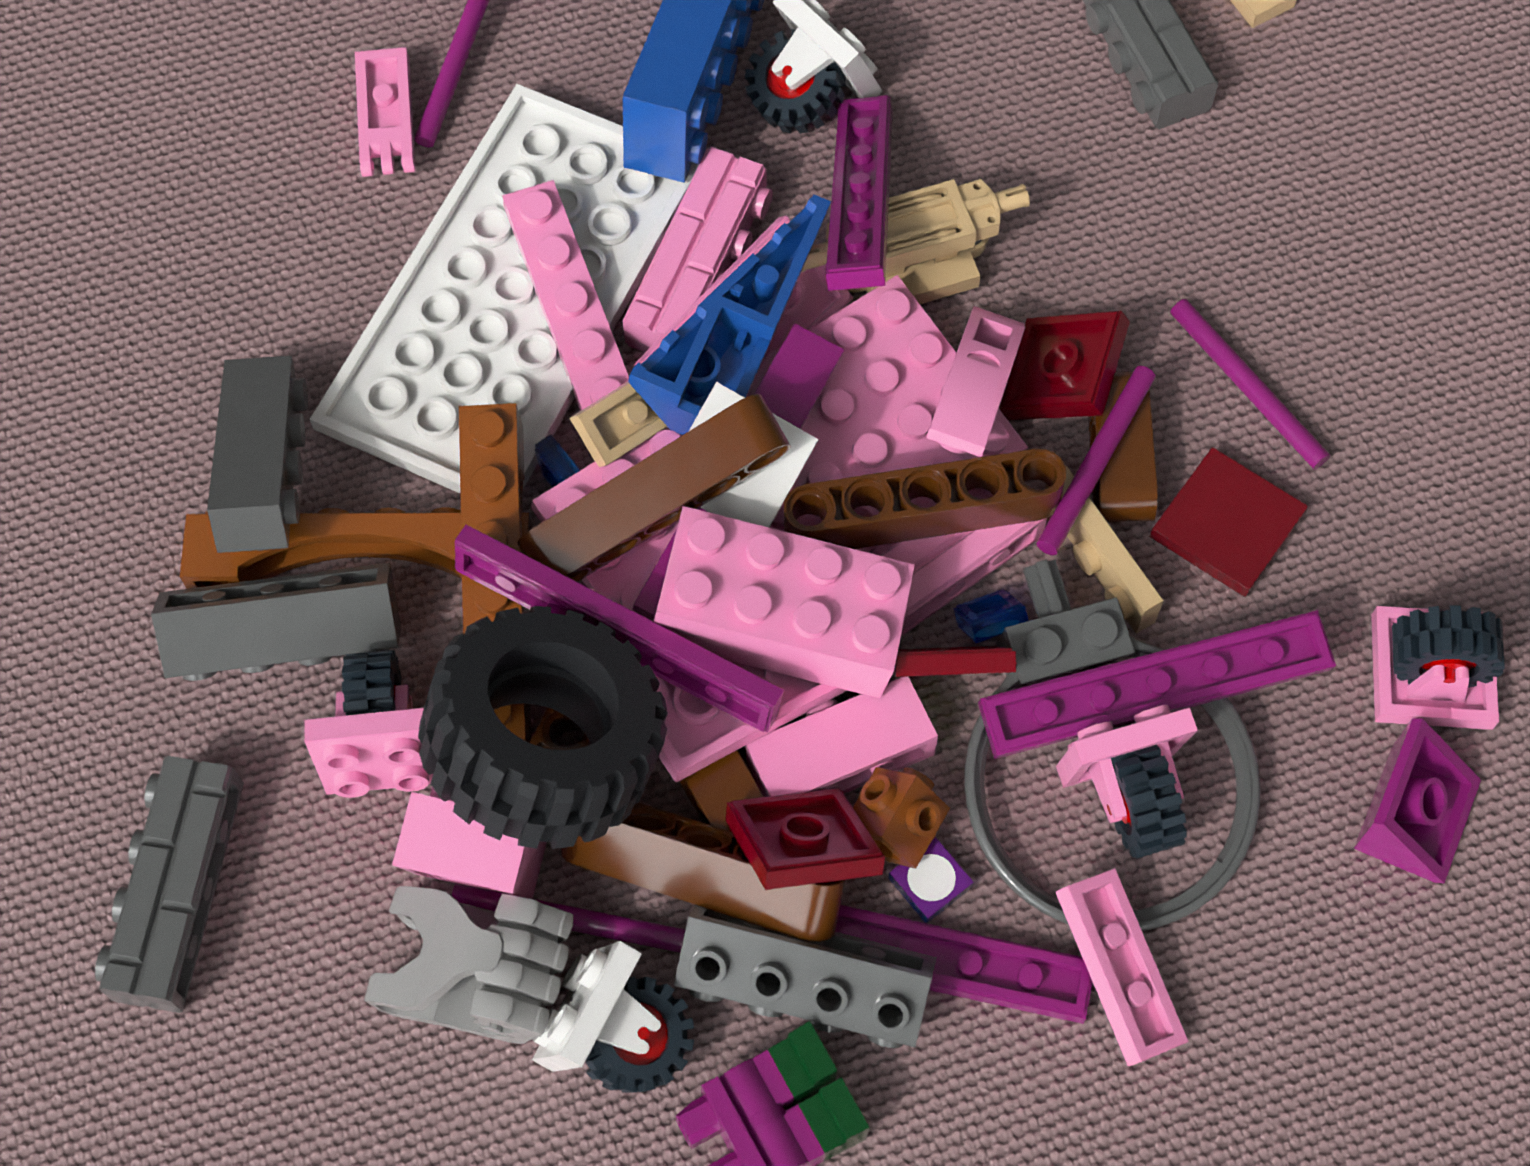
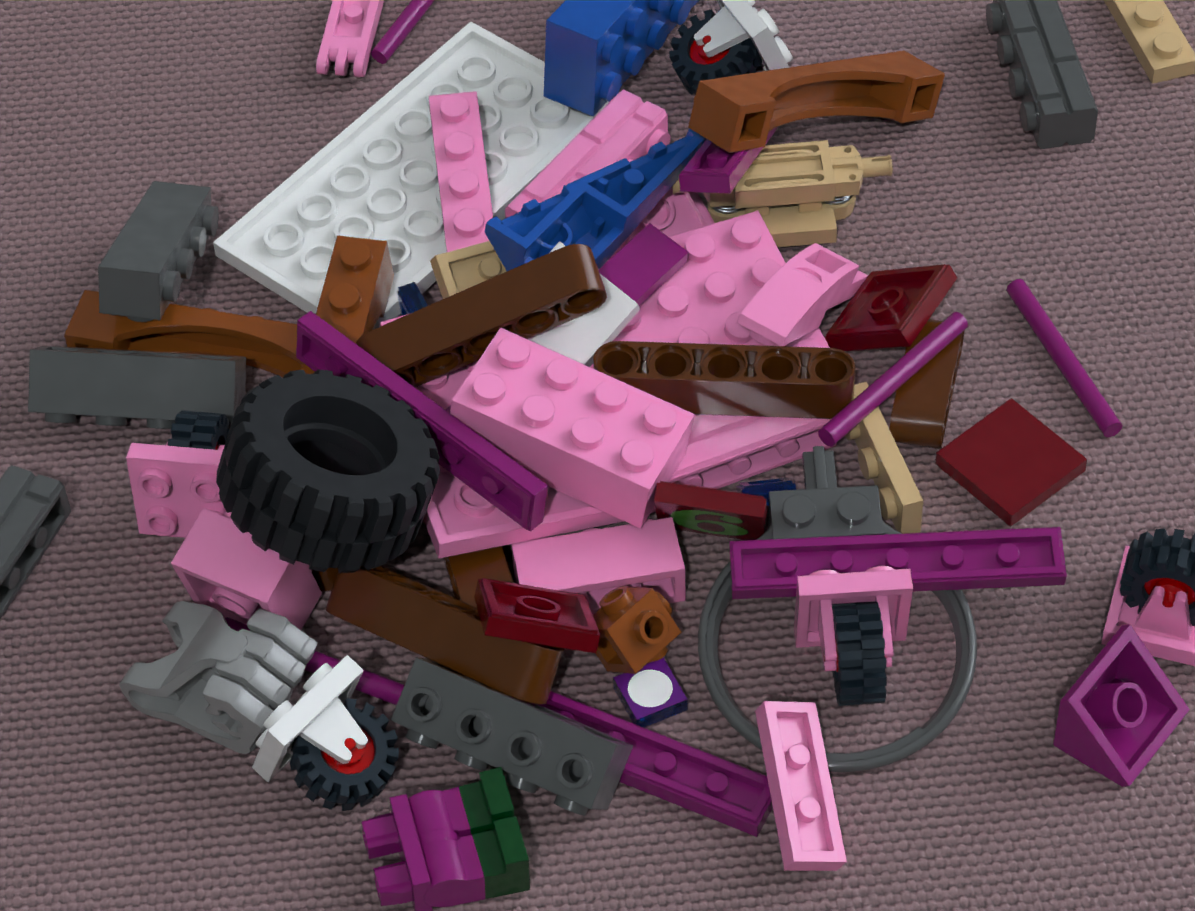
camera: 15 degrees right, 15 degrees down
(868, 172) = (743, 108): none -> dark orange arch

